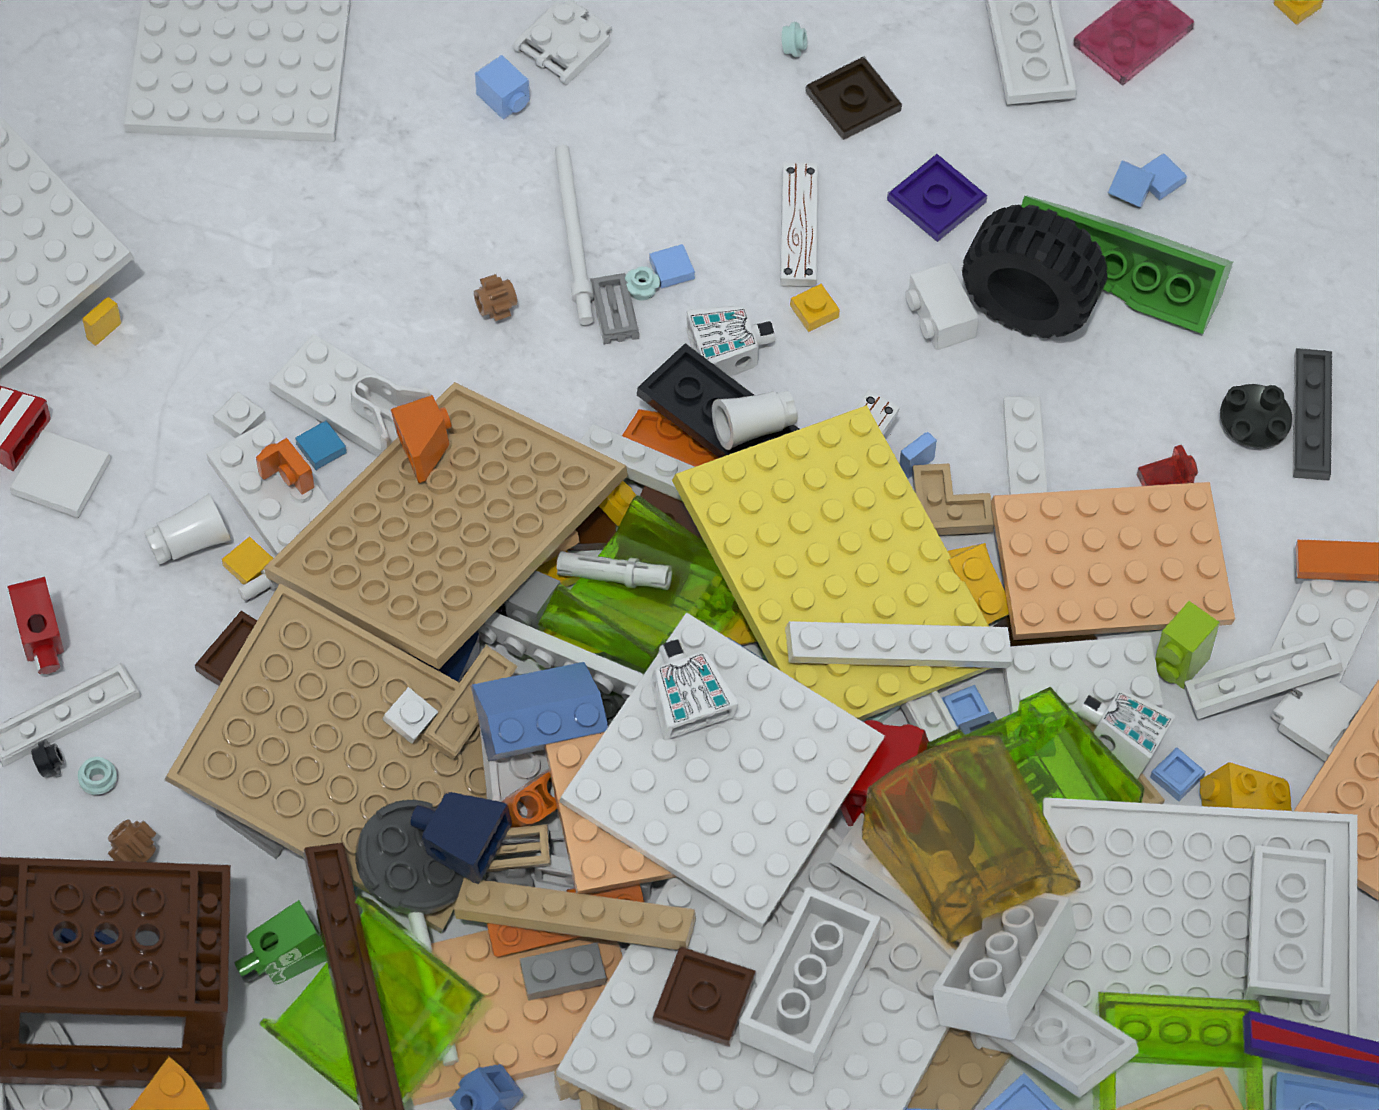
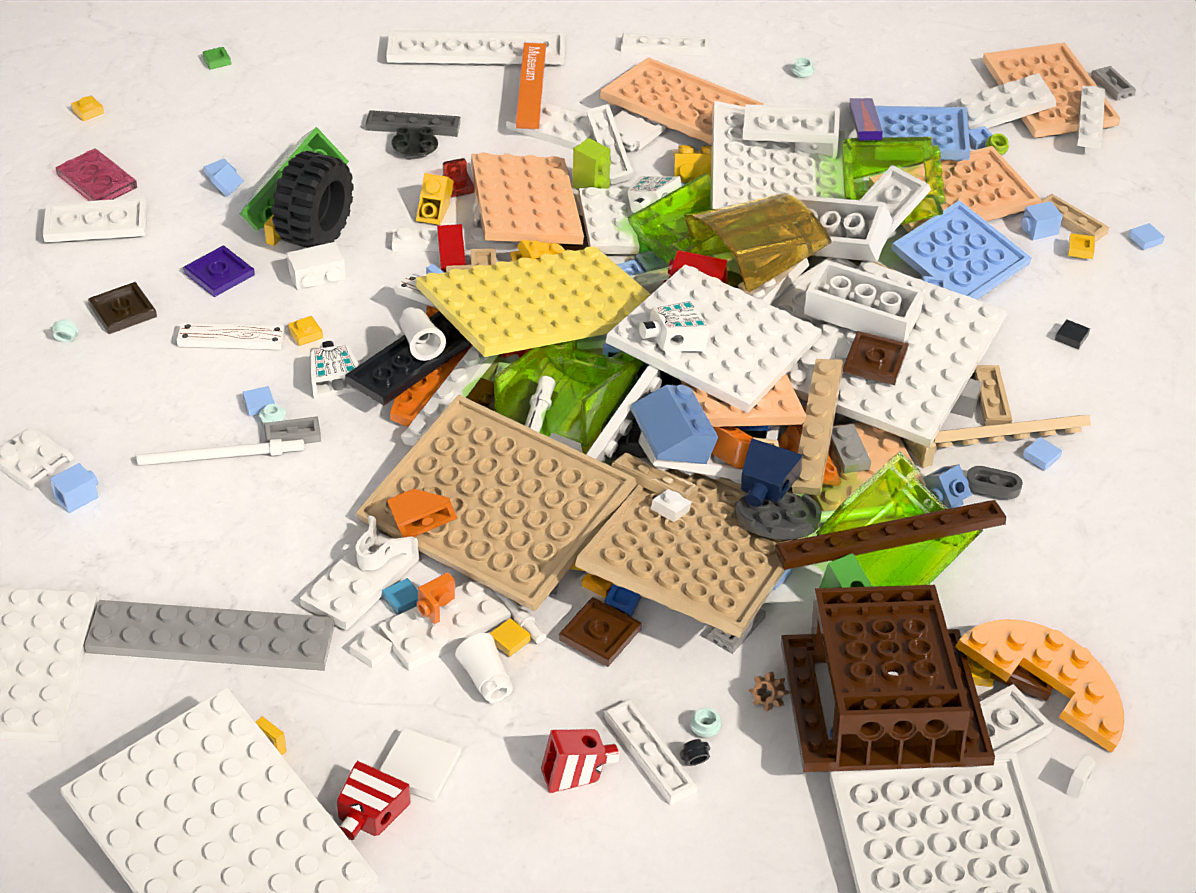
camera: 90 degrees left, 15 degrees down
(267, 255) = (210, 635): none -> light grey plate
(495, 297) = (280, 489): medium nougat gear -> none
(898, 644) = (603, 273): white plate -> none
(990, 468) = (451, 245): none -> red tile
(1110, 443) = (434, 198): none -> yellow slope

